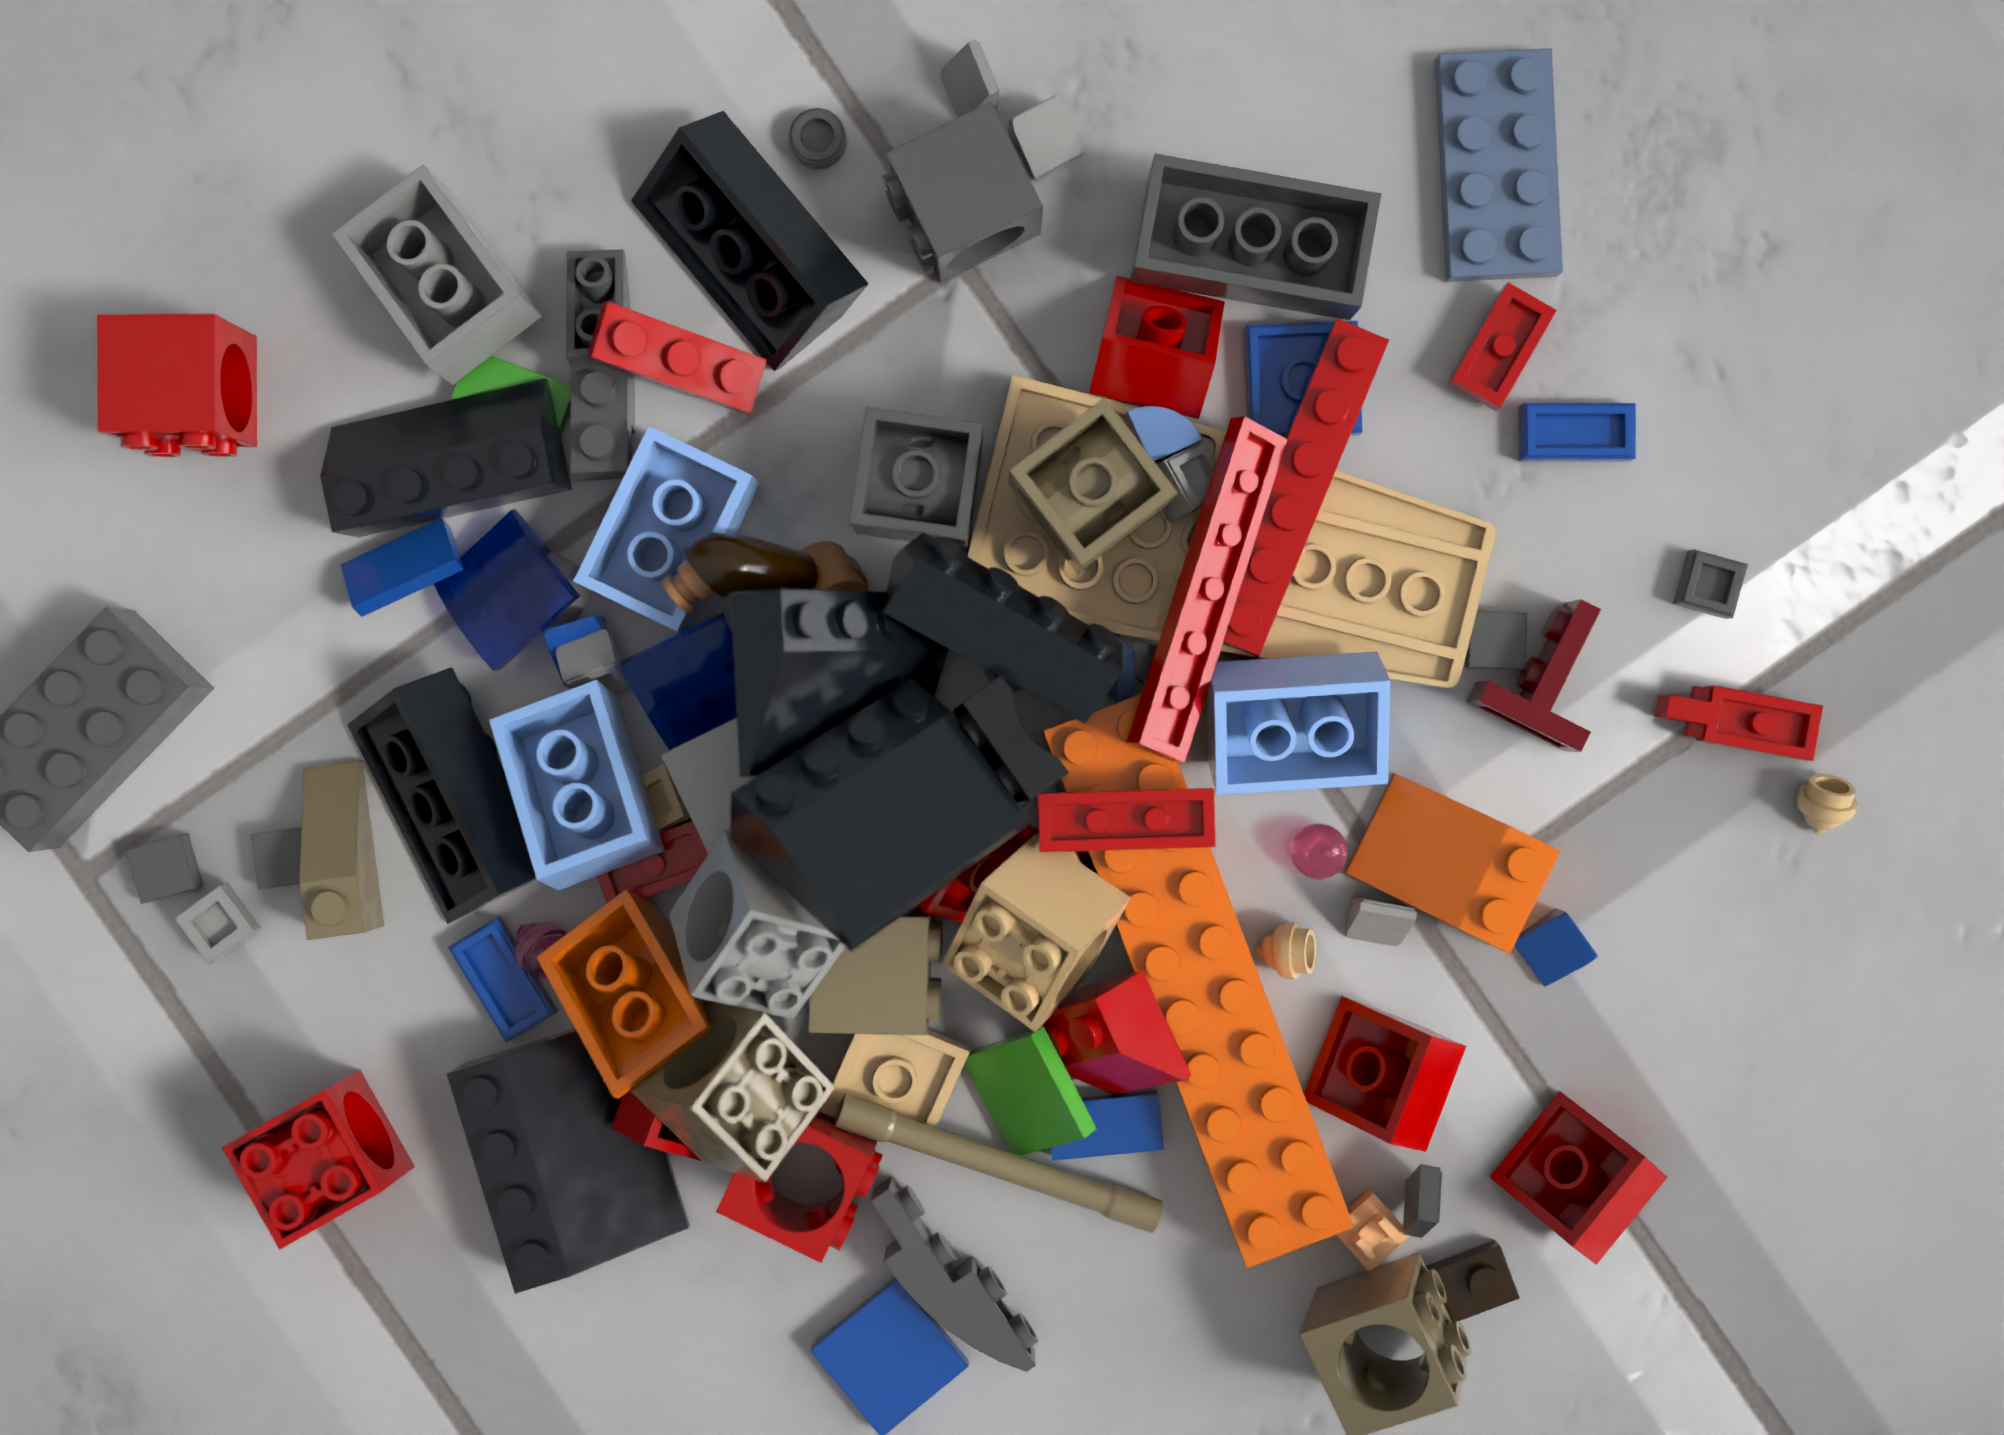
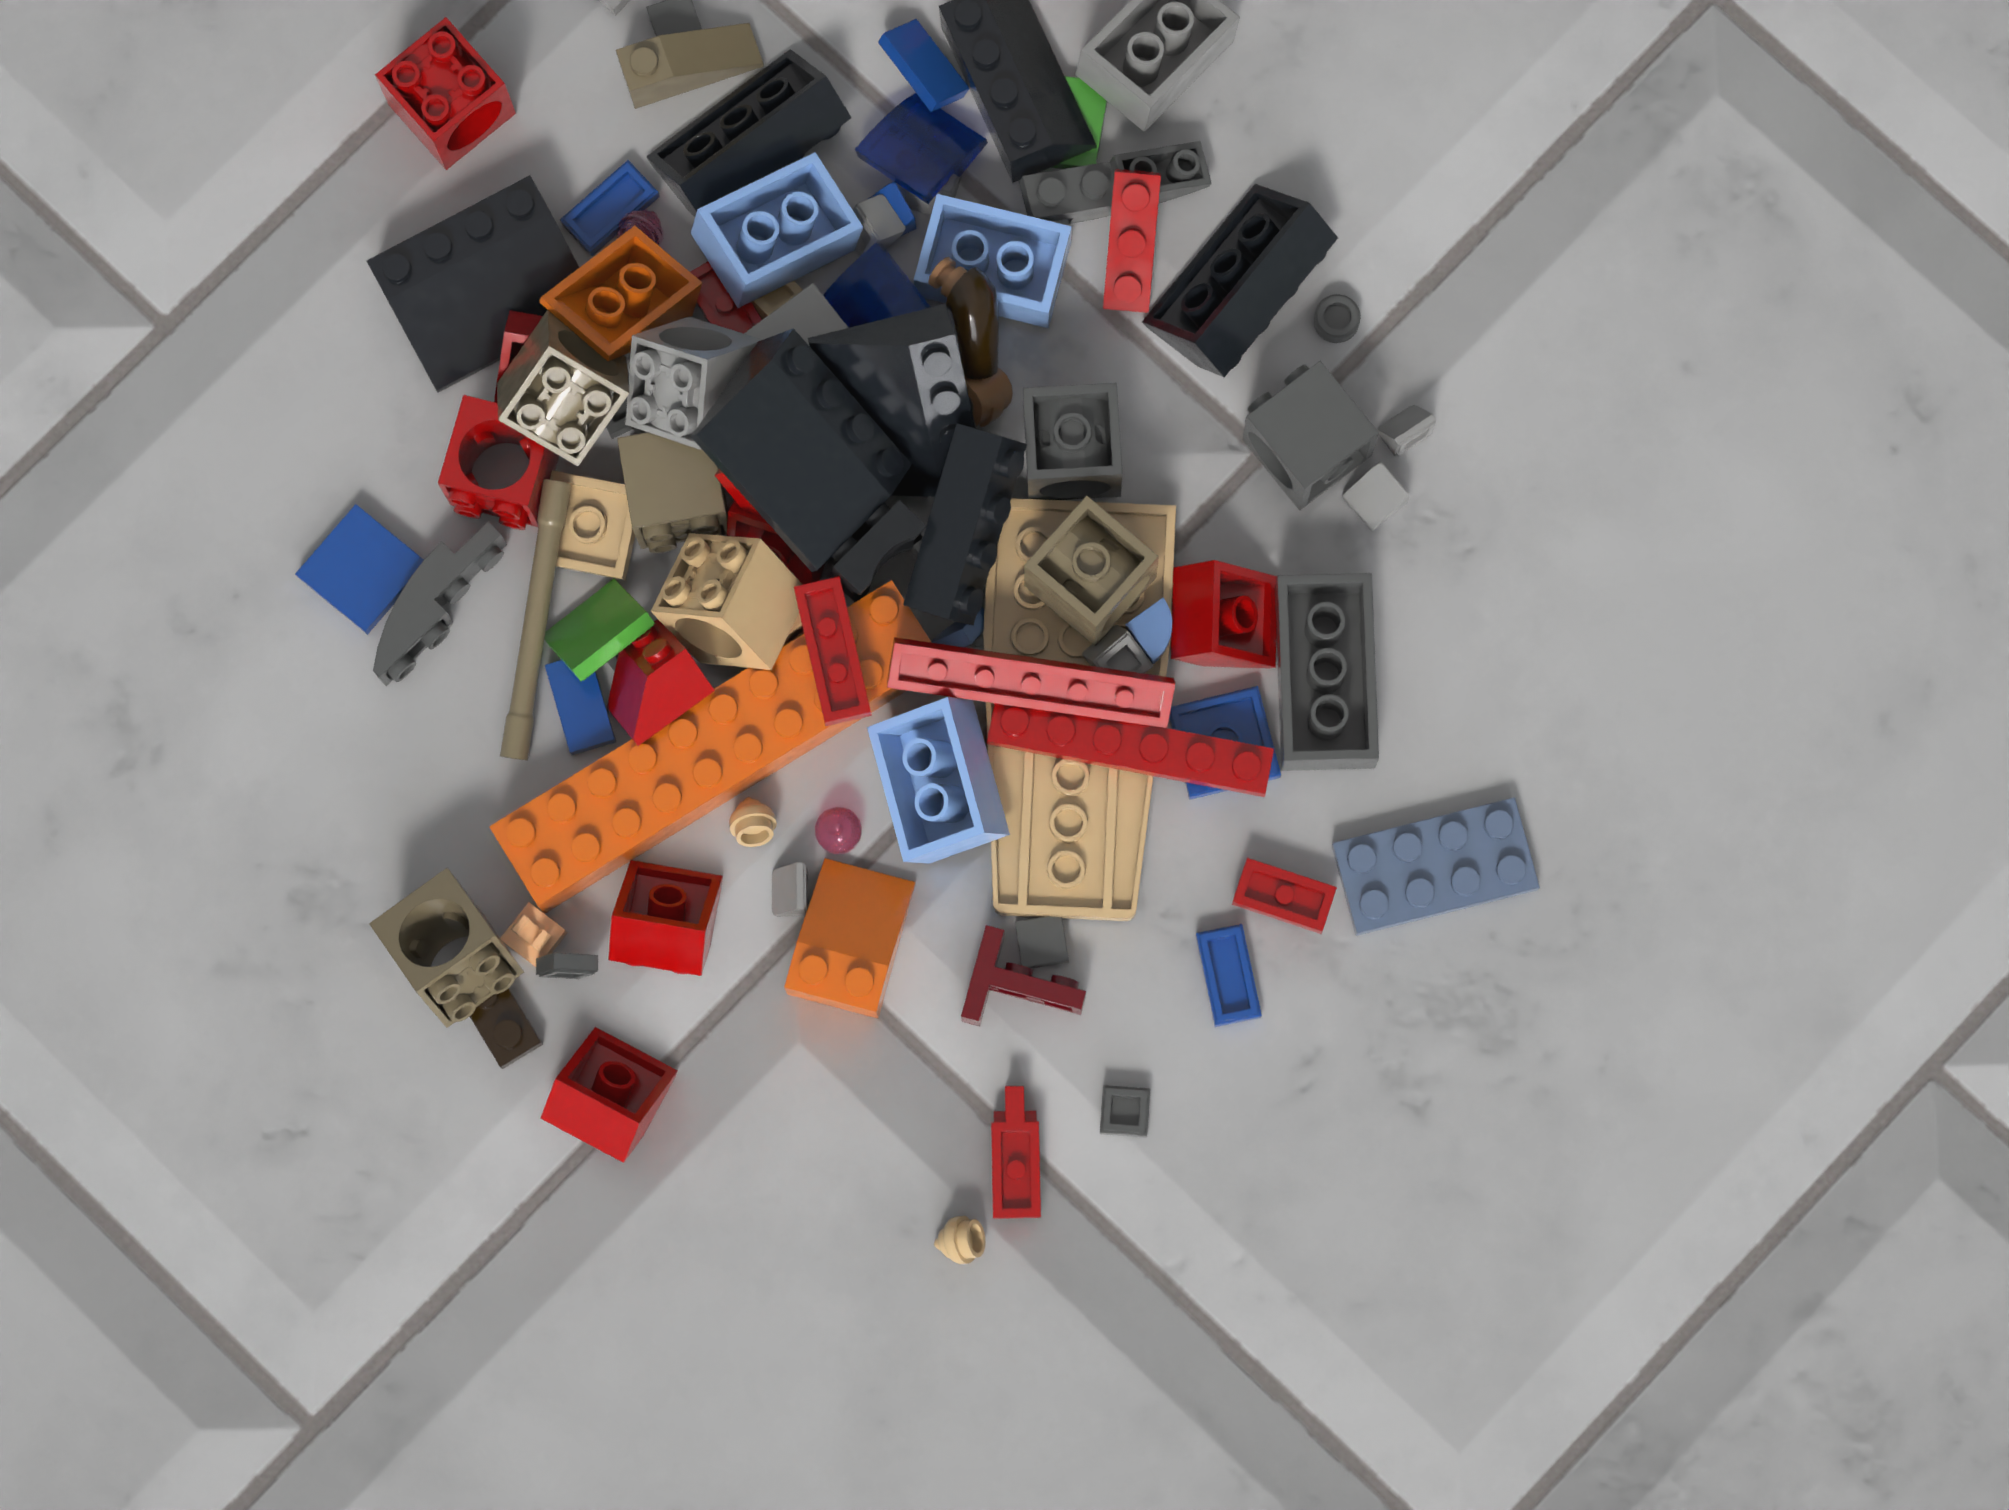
camera: 80 degrees right, 10 degrees down
(1554, 947) = (796, 1039): blue slope -> none

